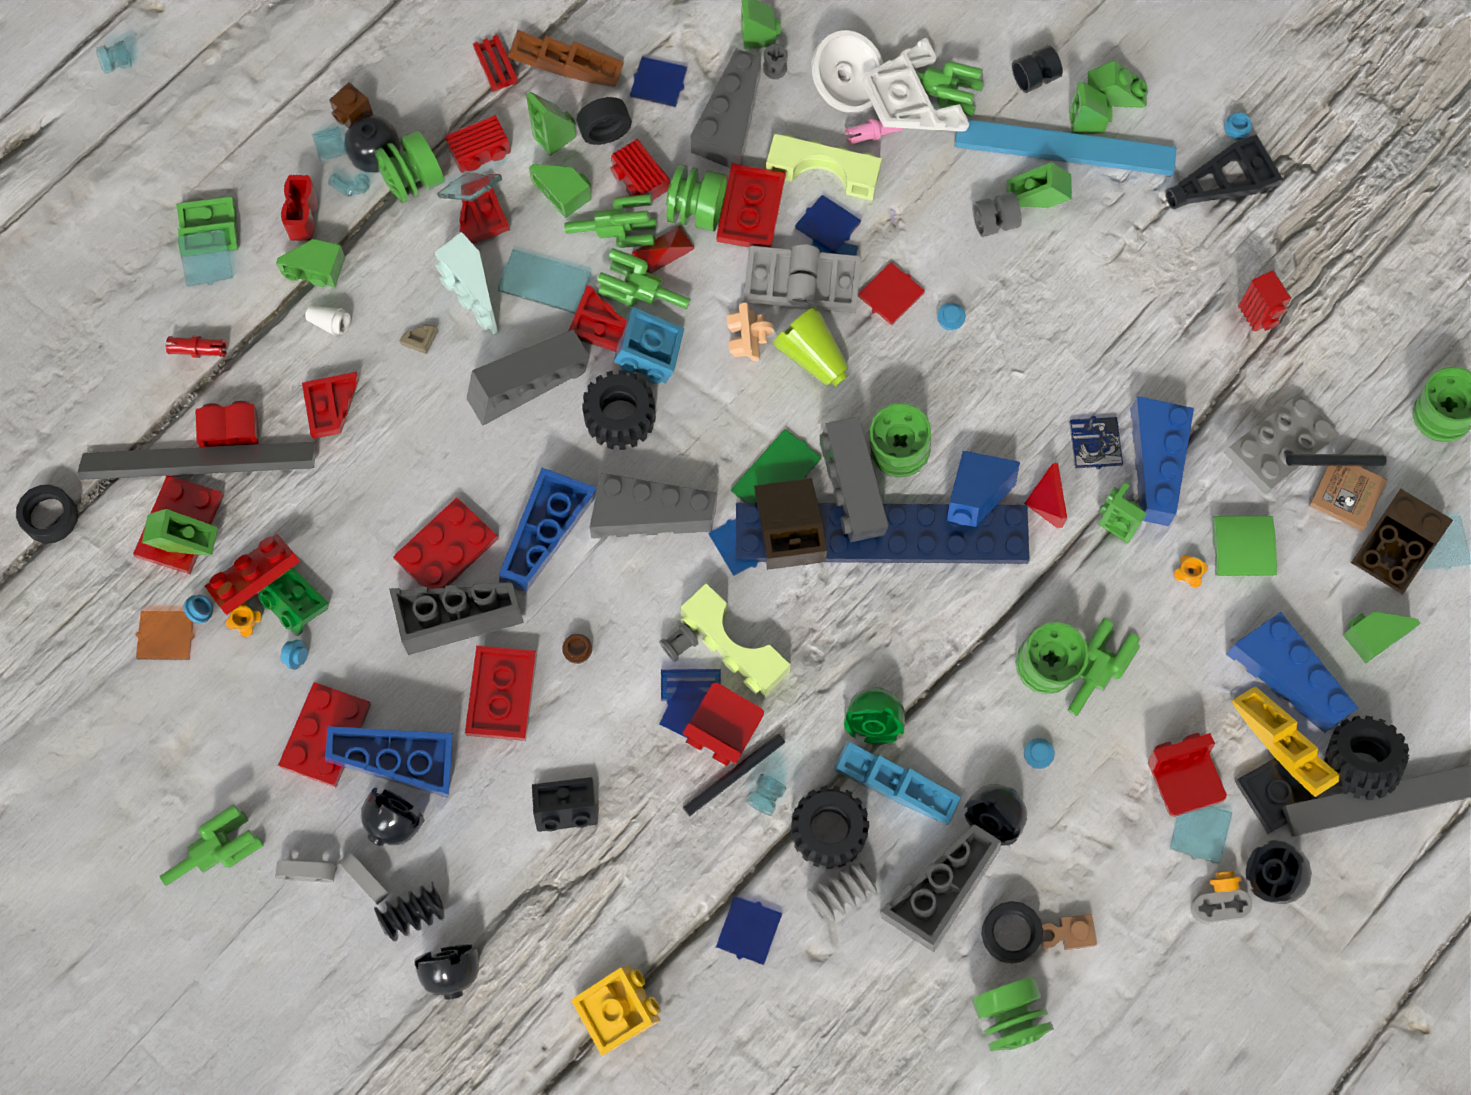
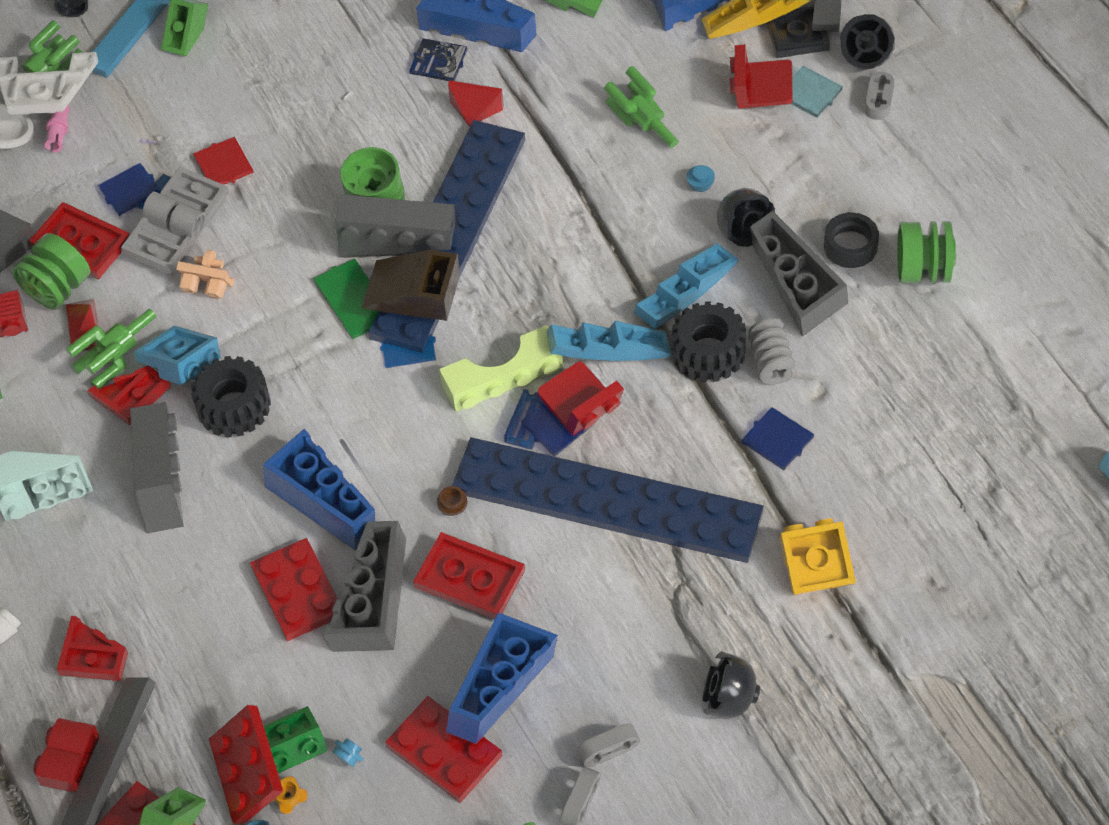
camera: 65 degrees left, 15 degrees down
(389, 819) = (559, 702): black cylinder -> none
(410, 912) = (659, 708): black piece -> none
(420, 338) = (62, 555): dark tan tile -> none
(544, 281) = (63, 426): clear light blue piece -> none
(564, 804) = (602, 550): black bracket -> none
(617, 222) = (37, 346): bright green plant -> none
(625, 793) = (609, 499): none -> dark blue plate
(649, 508) = (341, 398): dark grey wedge -> none
(678, 642) = (484, 414): dark grey bush -> none
(733, 775) = (630, 413): black bar -> none
(766, 793) = (658, 384): clear light blue wheel -> none
(795, 731) = (615, 343): none -> dark azure slope
(813, 348) = (248, 226): lime cone -> none
(856, 170) = (91, 150): yellowish green arch -> none
(875, 715) = (620, 278): green cylinder -> none
(951, 316) = (270, 124): dark azure plate -> none
(980, 486) = (442, 143): blue slope -> none
(997, 214) = (193, 59): dark grey wheel -> none
(1063, 647) = (623, 135): bright green wheel -> none
(1074, 931) = (866, 198): medium nougat plate -> none
(1120, 515) = (516, 51): bright green bracket -> none
(1198, 567) = (584, 28): light orange plate -> none
(1225, 881) = (860, 84): light orange plate -> none

